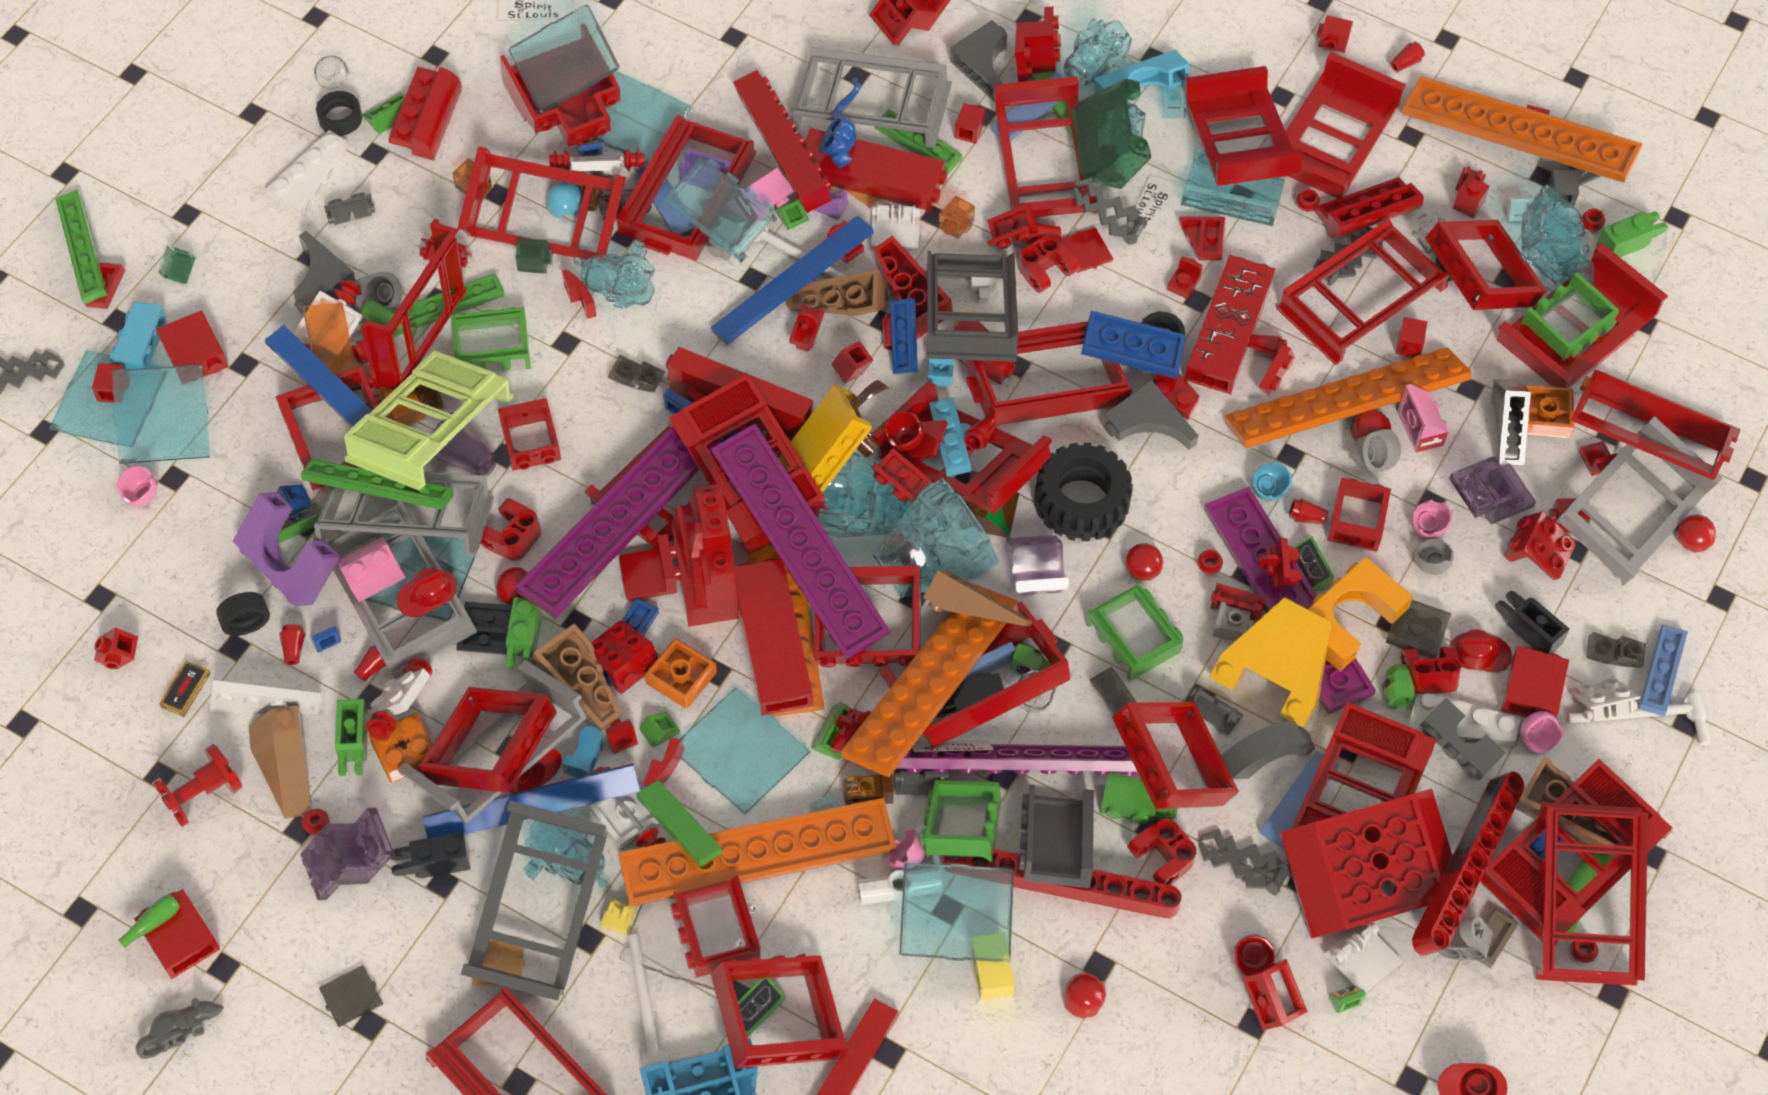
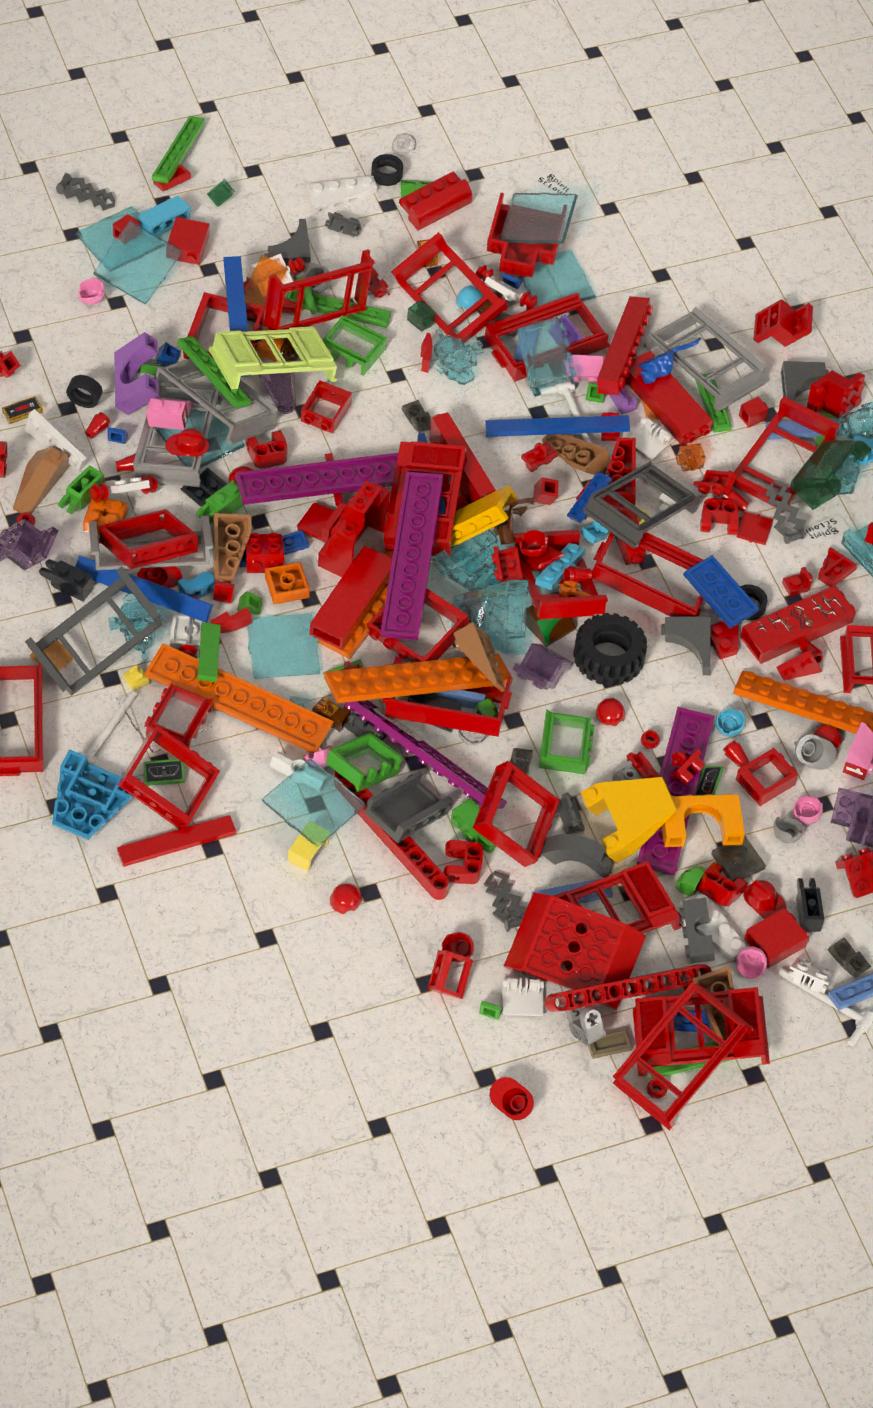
camera: 35 degrees right, 5 degrees down
(989, 455) = (570, 588): none -> orange bar

